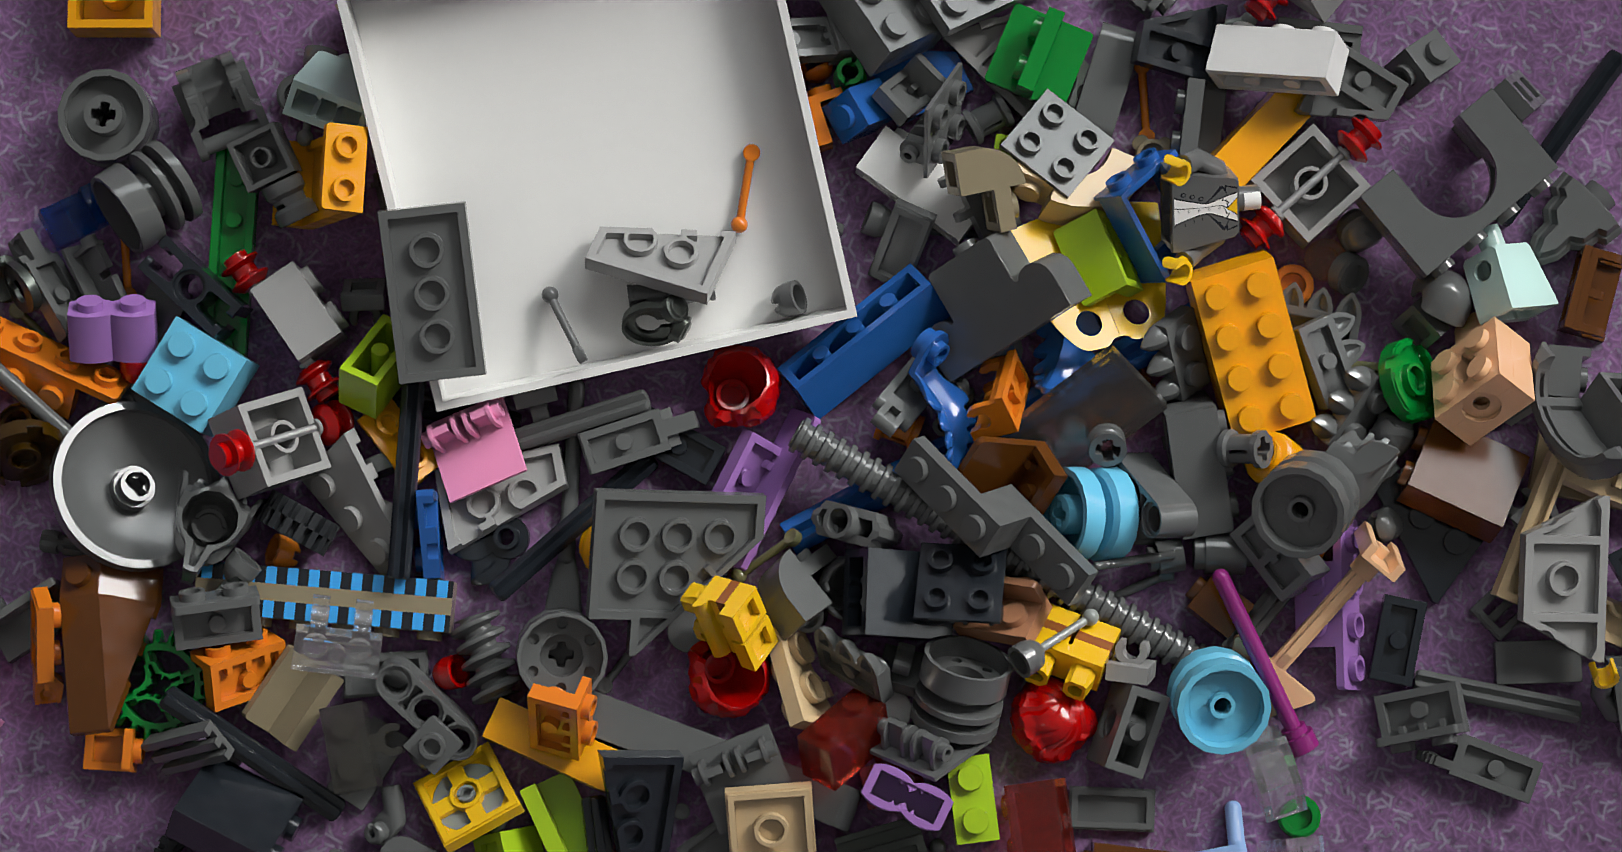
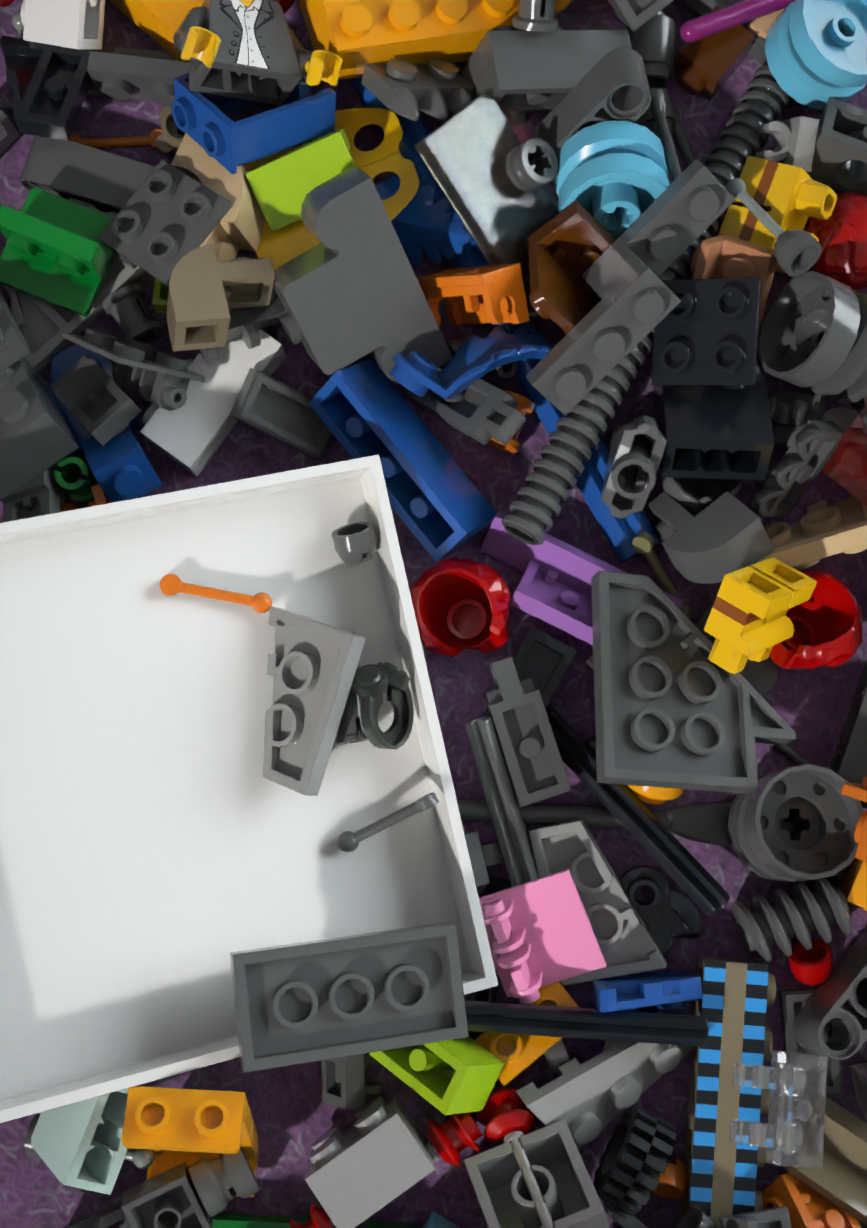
camera: 90 degrees left, 0 degrees up
(875, 220) = (254, 449): dark grey hinge -> none

